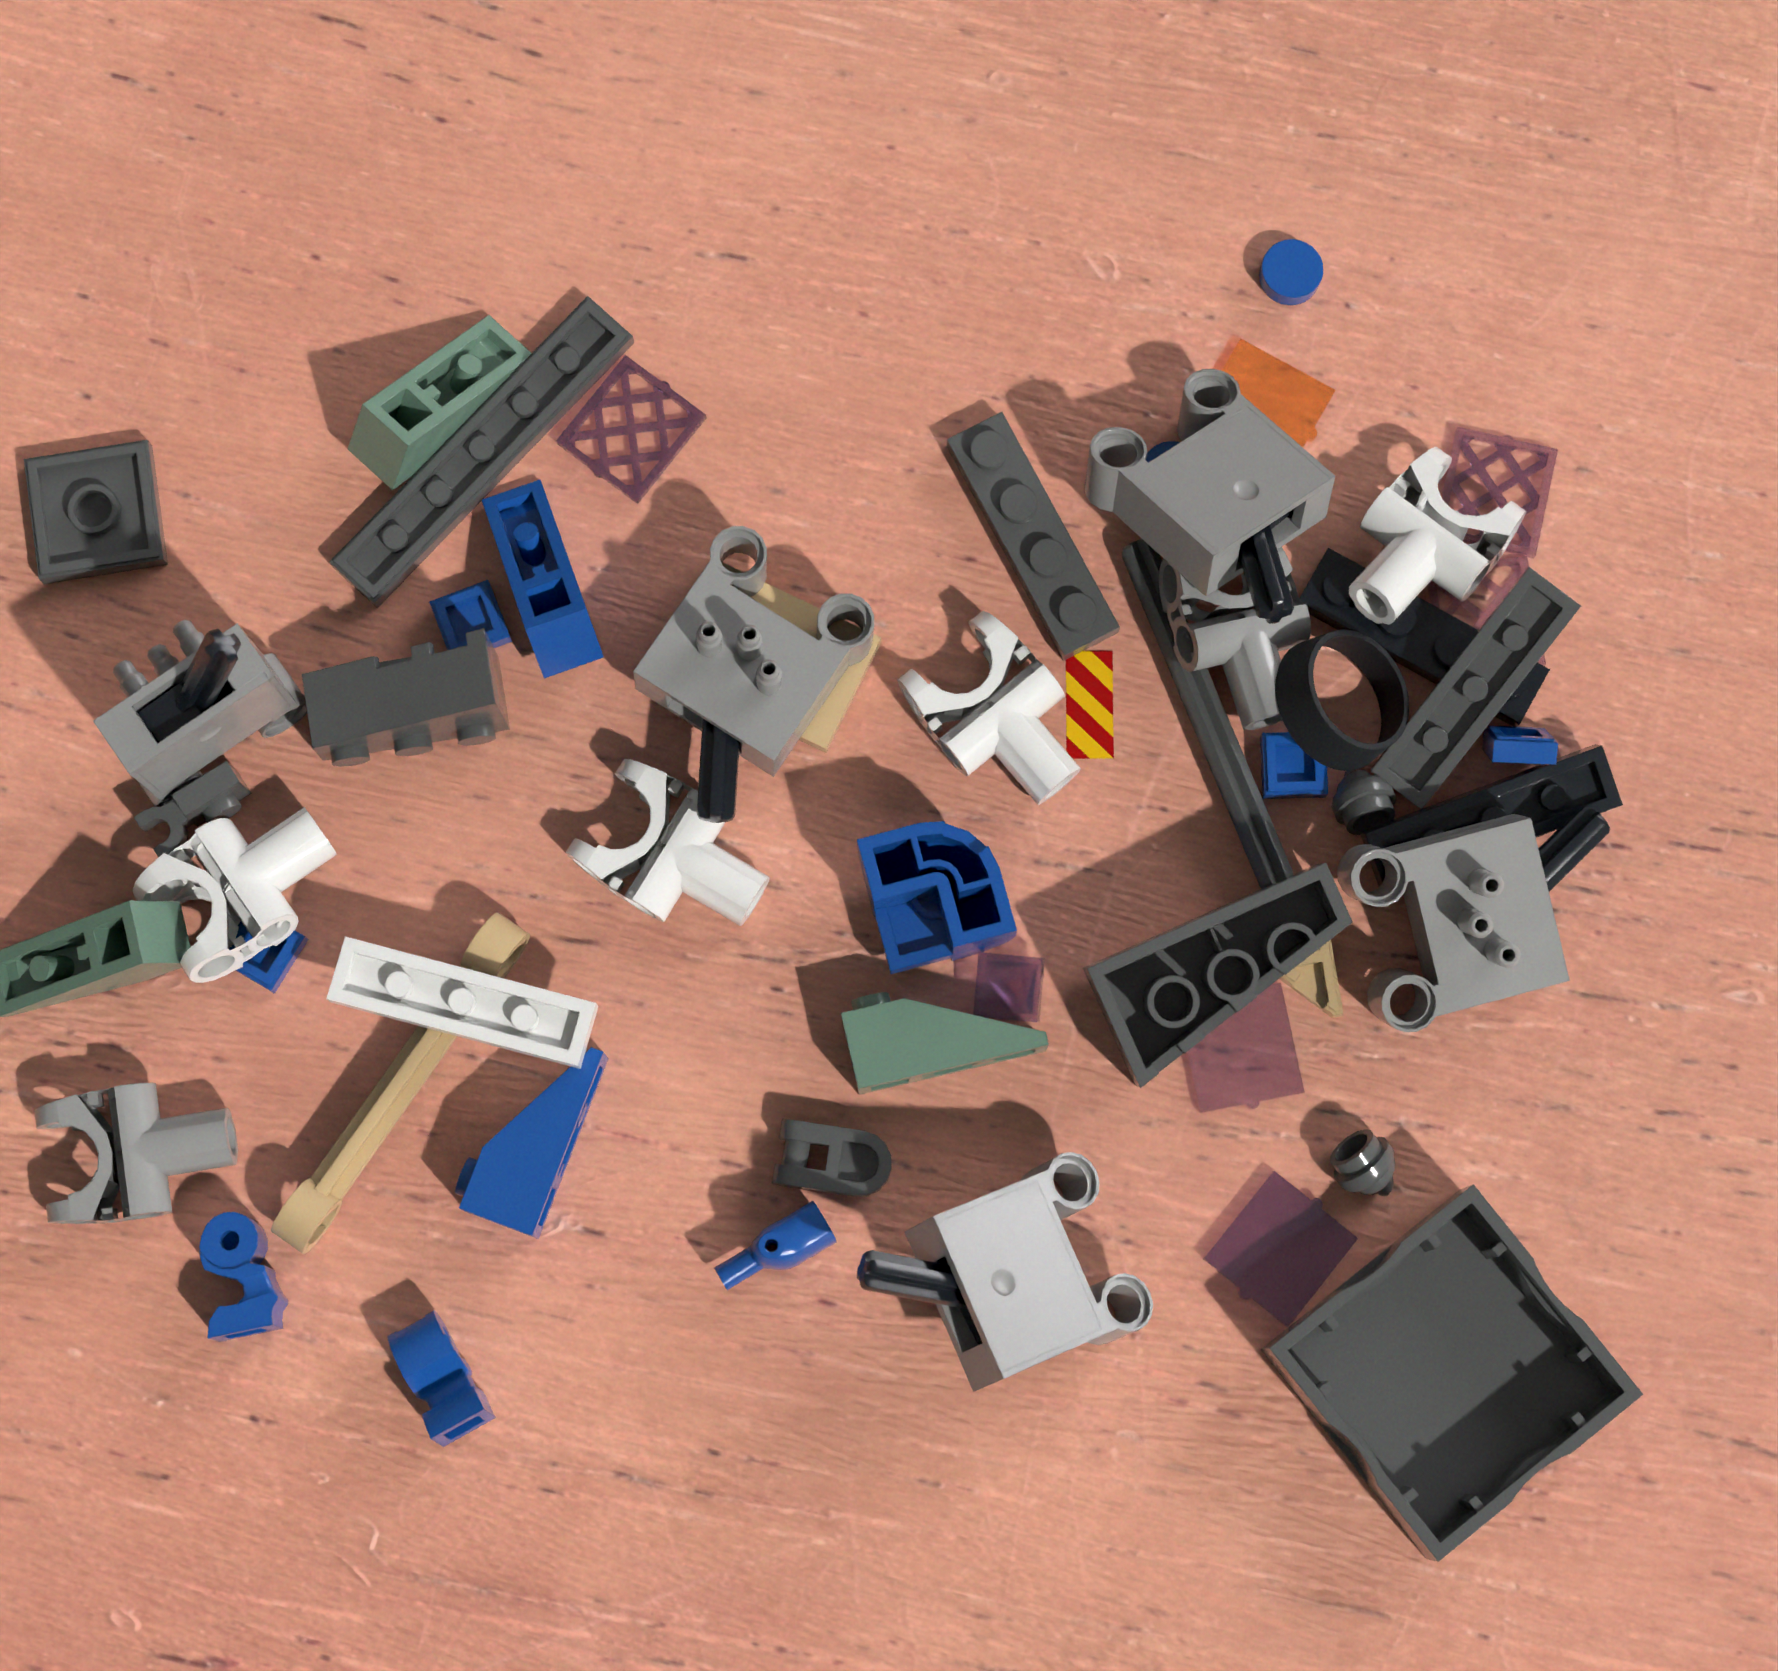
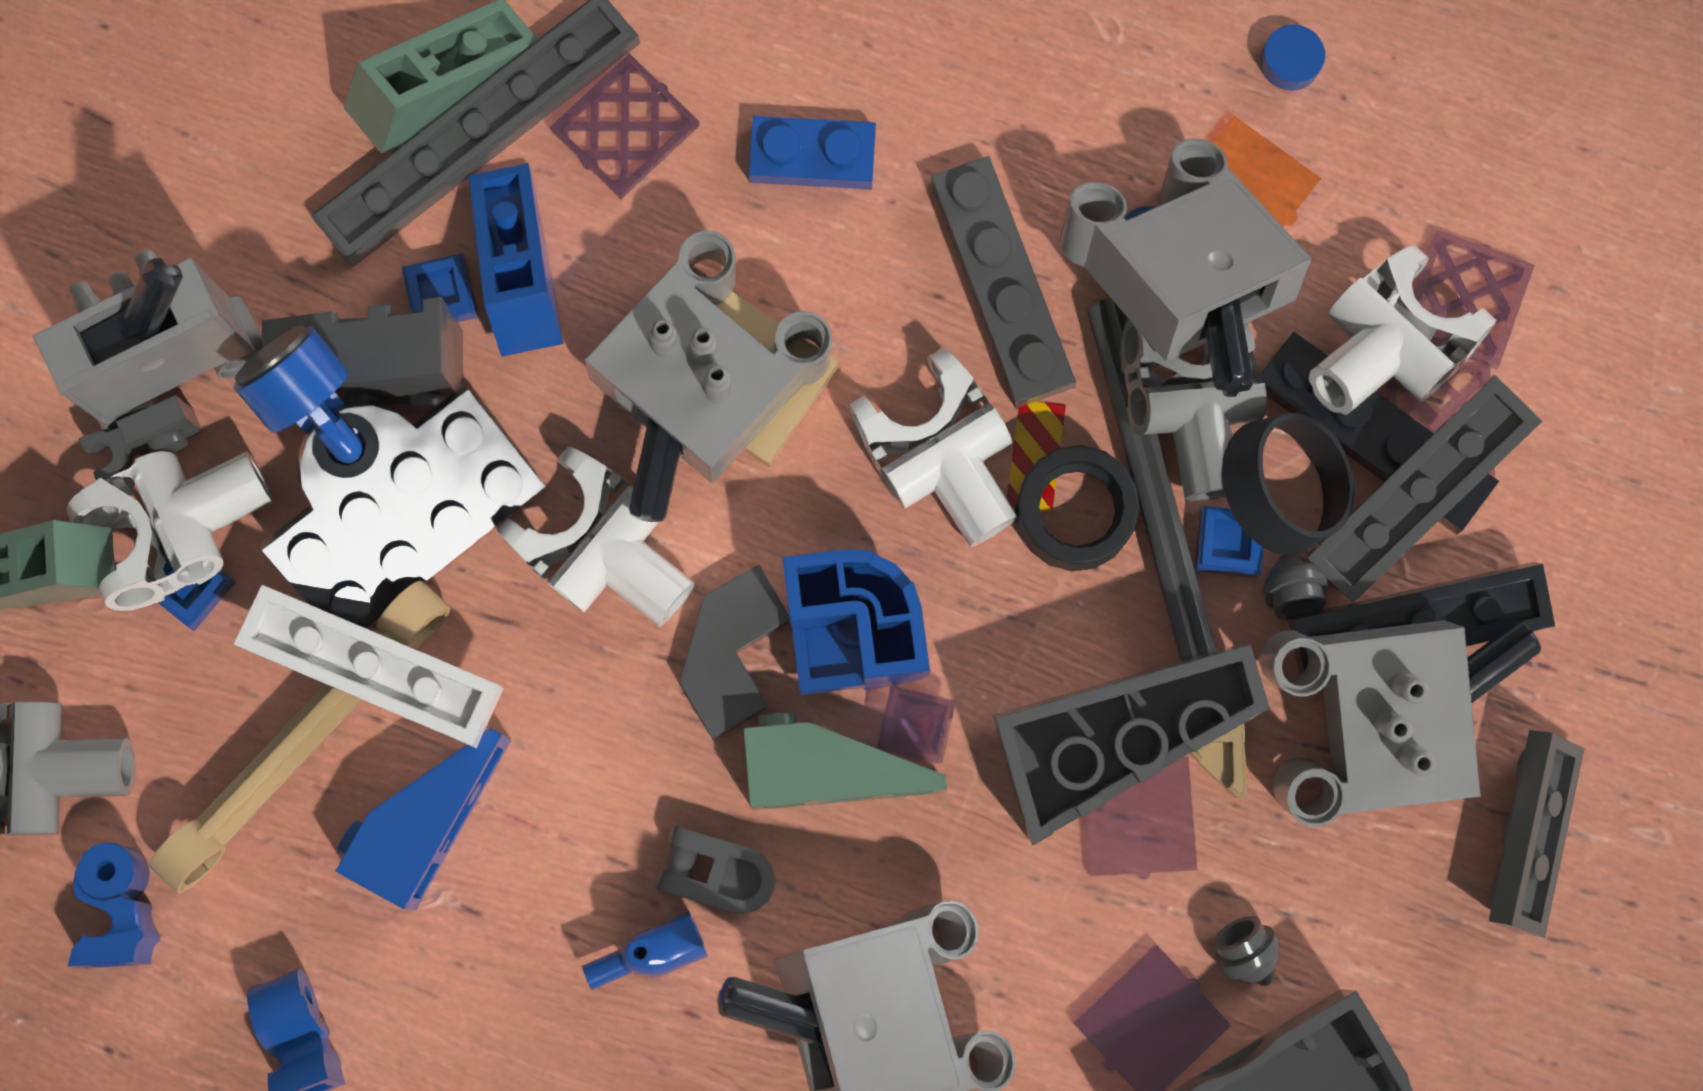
camera: 10 degrees right, 0 degrees up
(95, 512) = (93, 138): dark grey tile -> none
(448, 827) = (382, 492): none -> plate
(807, 914) = (726, 625): none -> dark grey tile
(824, 431) = (812, 152): none -> blue plate
(1140, 704) = (1090, 462): none -> black tyre
(1519, 745) = (1459, 552): blue tile -> none
(1630, 1010) = (1536, 833): none -> dark grey plate

